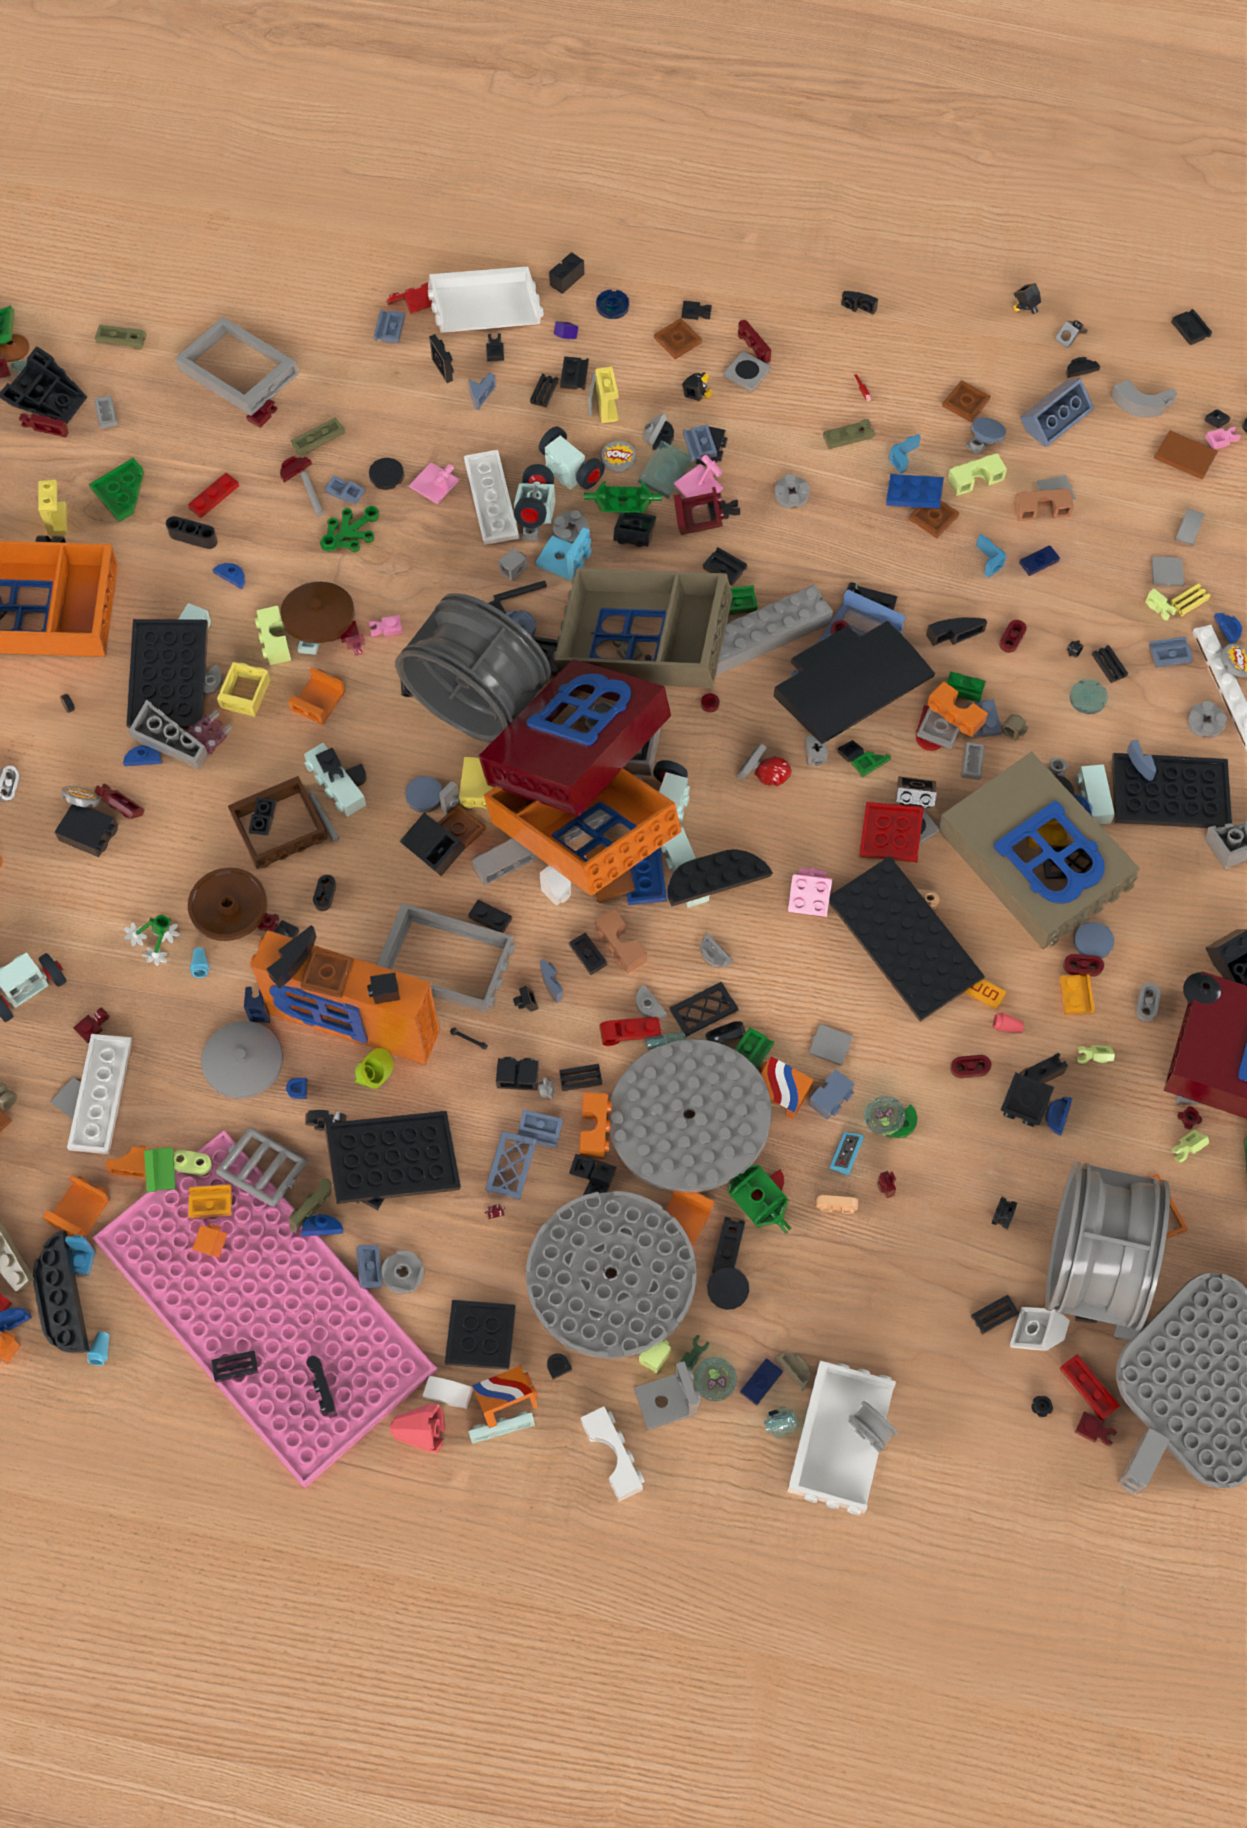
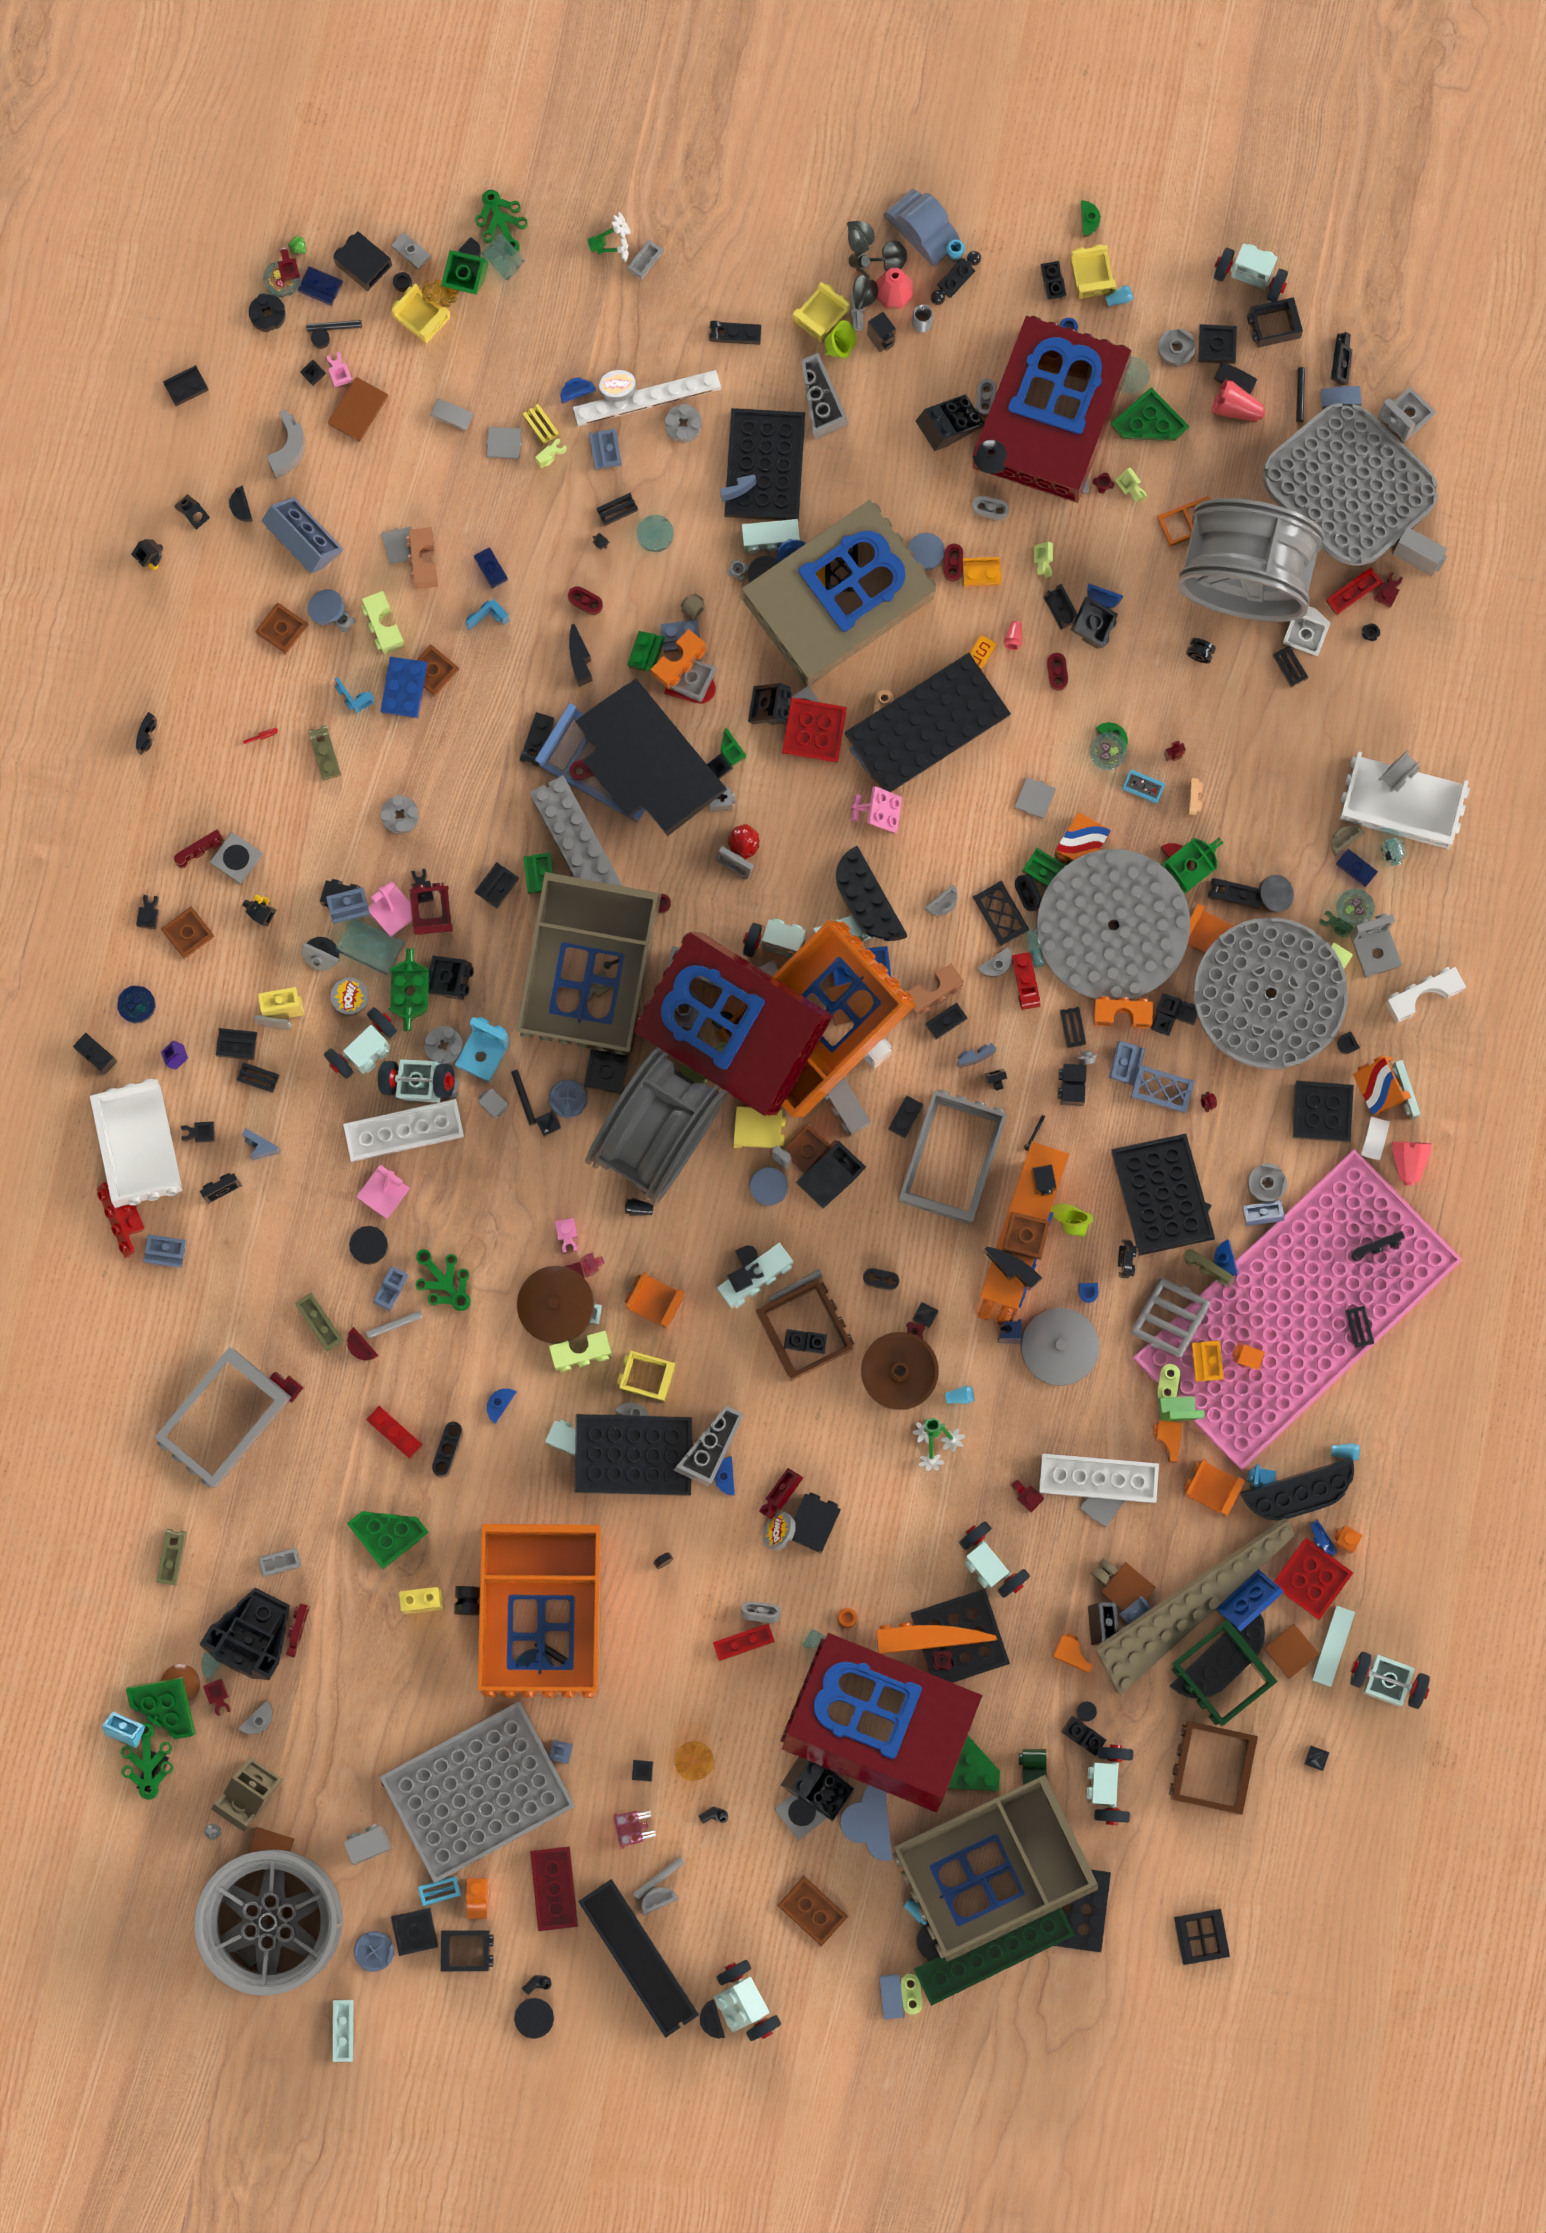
camera: 90 degrees left, 15 degrees up
(206, 738) = (702, 1408): clear pink piece -> none
(836, 1090) = (1089, 796): sand blue brick -> none
(973, 760) = (731, 649): light grey plate -> none

